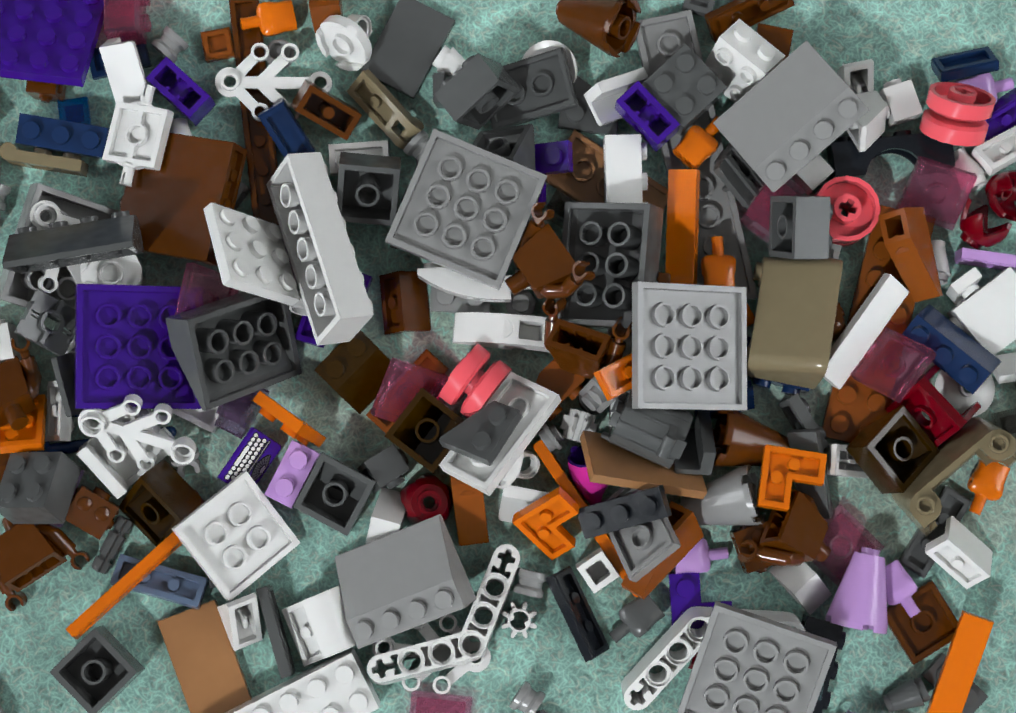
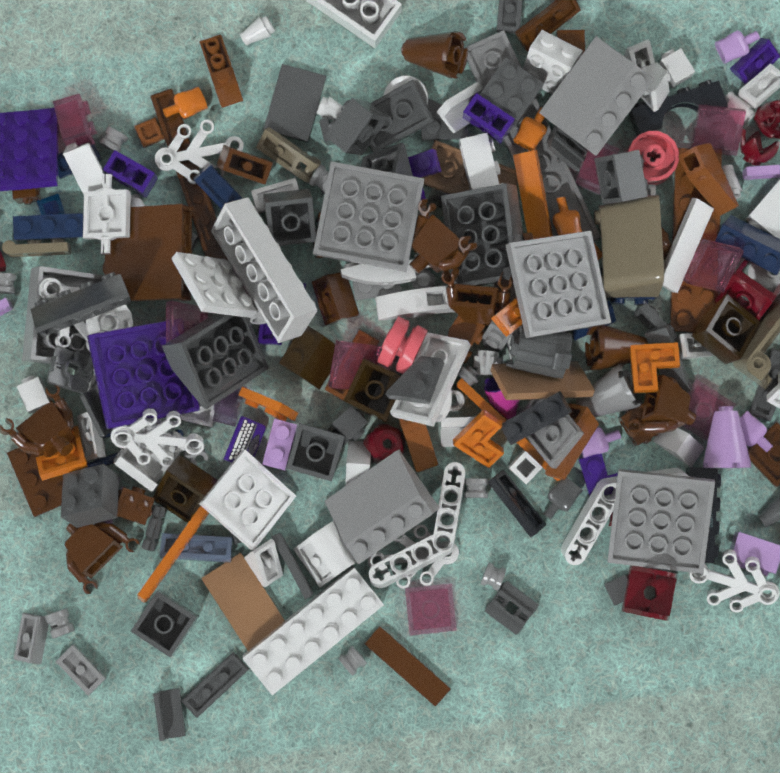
camera: 15 degrees left, 0 degrees up
(275, 50) = (195, 127): light grey plate -> none
(346, 40) = (247, 109): white tile -> none
(510, 616) = (466, 516): white gear -> none
(700, 448) = (582, 361): dark grey panel -> none
(813, 174) = (622, 135): white brick -> none
(957, 114) = (720, 67): coral wheel -> none
(964, 64) = (719, 28): dark blue tile -> none
(964, 286) = (754, 195): white bracket -> none

